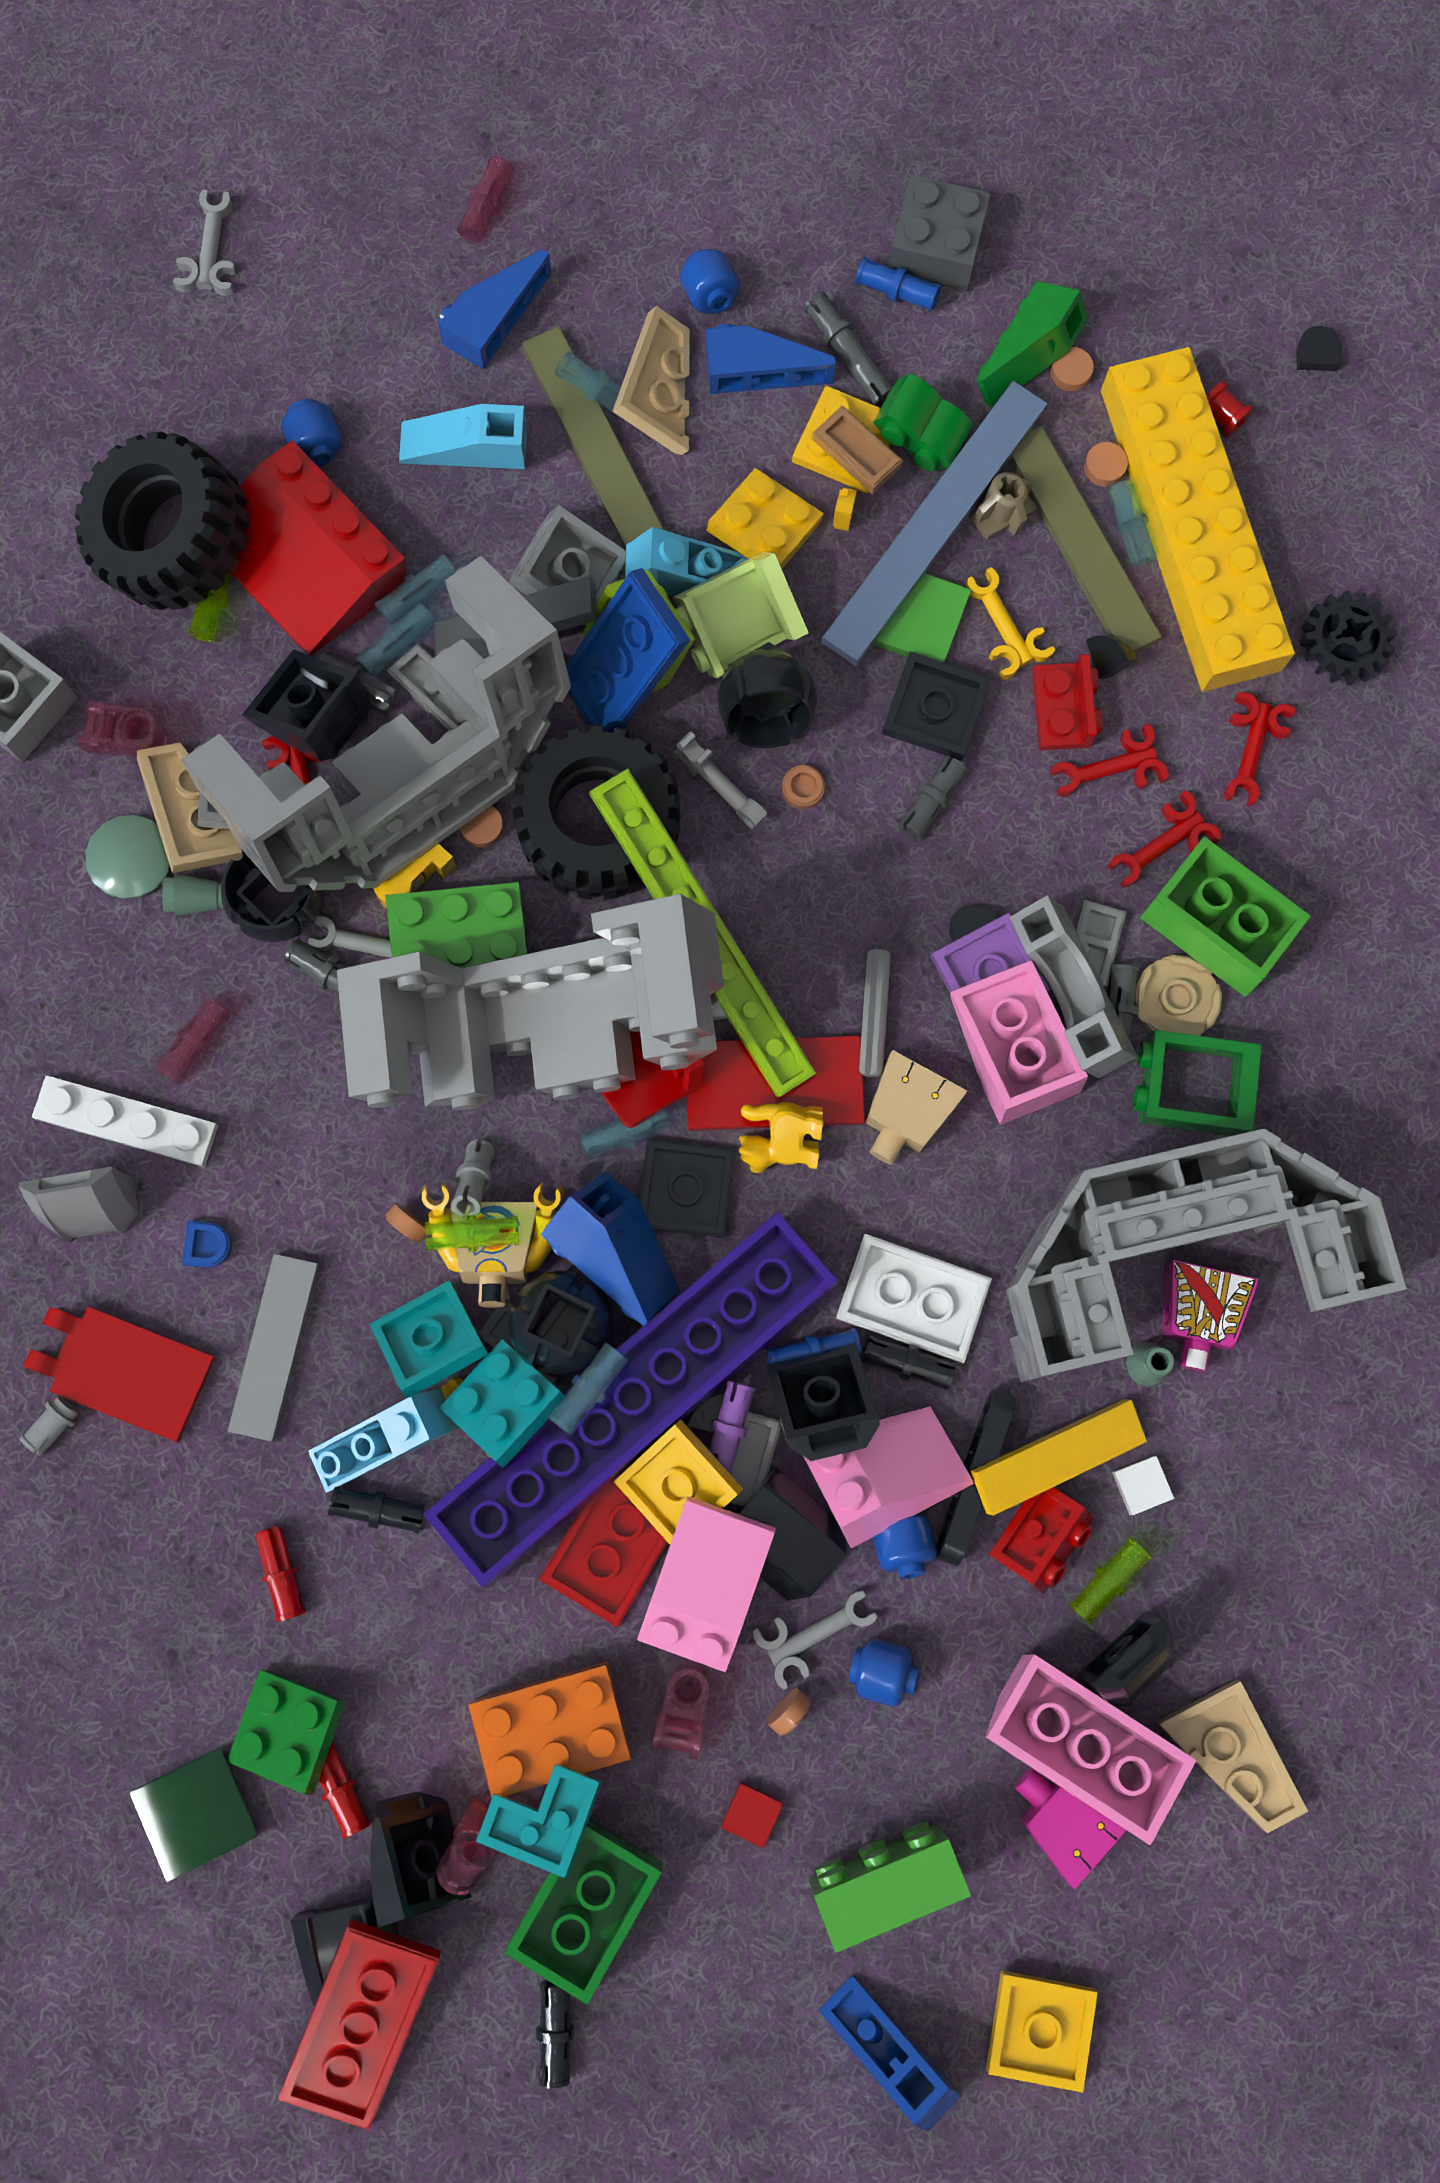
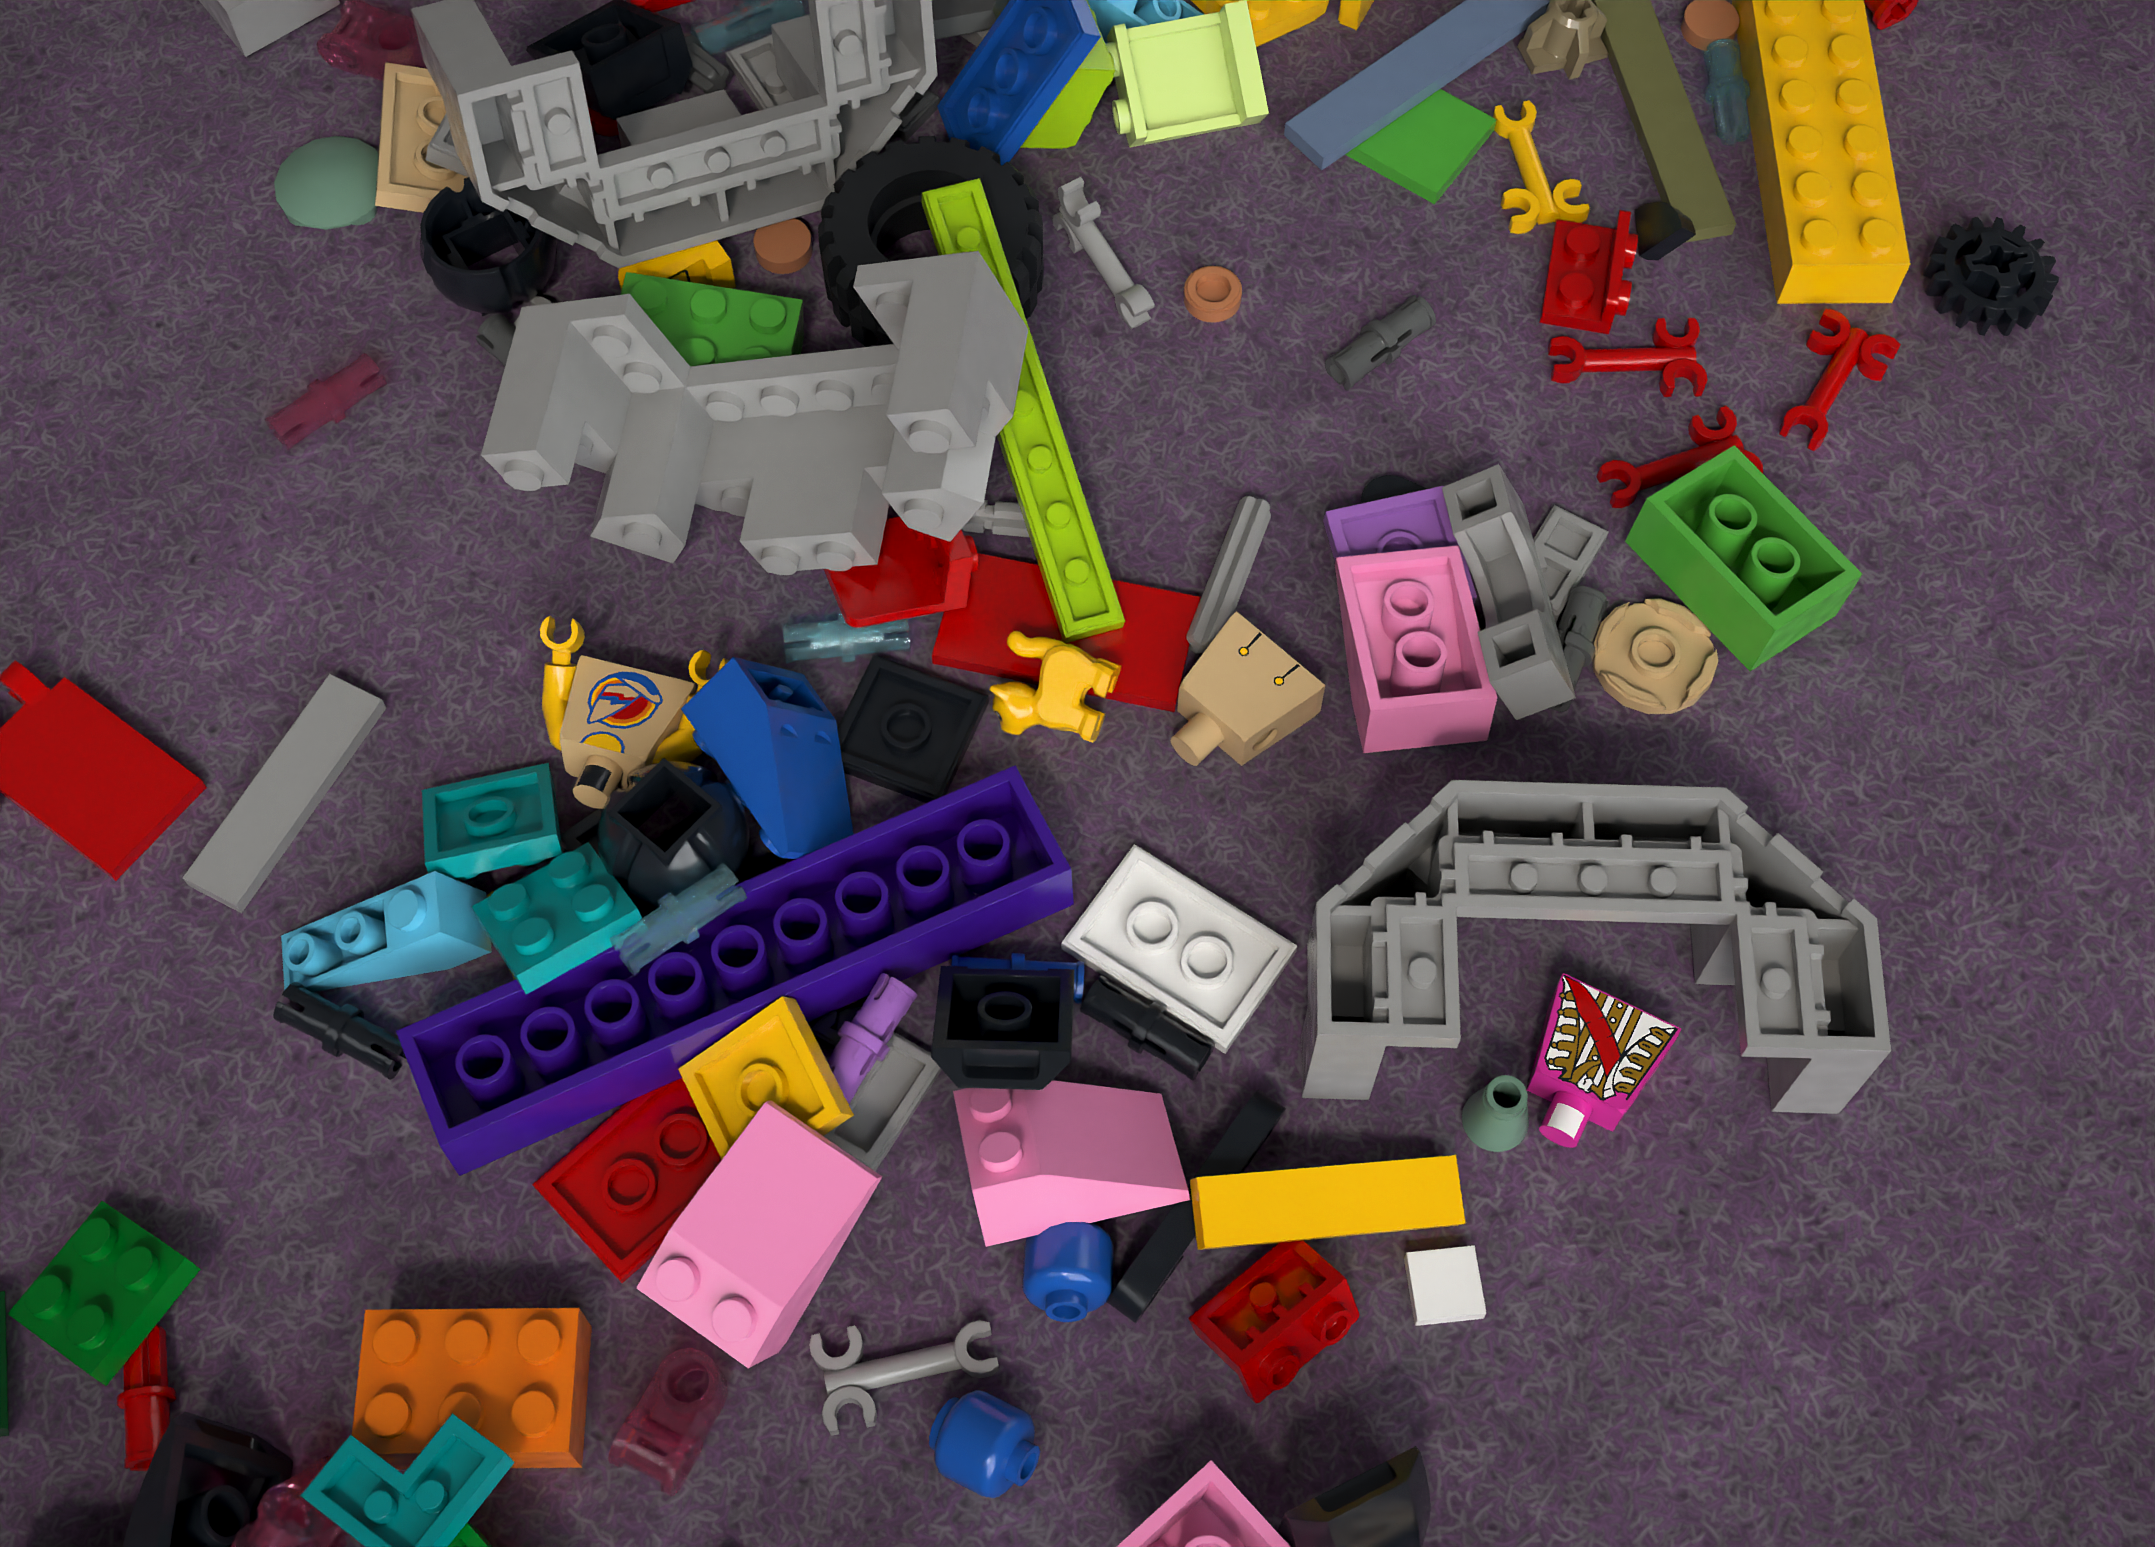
camera: 20 degrees right, 15 degrees down
(83, 1202) = (108, 540): light grey slope -> none
(125, 1121) = (205, 476): white plate -> none
(190, 895) = (384, 236): sand green cone -> none
(206, 1245) = (247, 646): blue tile -> none
(279, 1573) = (179, 1082): red axle -> none
(406, 1223) = (517, 678): nougat tile -> none
(472, 1233) = (591, 689): clear neon green pin -> none
(473, 1178) = (620, 636): light grey pin -> none
(767, 698) = (1182, 200): black piece -> none
(789, 1712) = (827, 1464): nougat tile -> none
(805, 1538) = (918, 1222): black slope -> none
(936, 706) = (1414, 237): black plate -> none
(1110, 1580) = (1359, 1406): clear neon green pin -> none
(1242, 1087) = (1663, 710): green window -> none

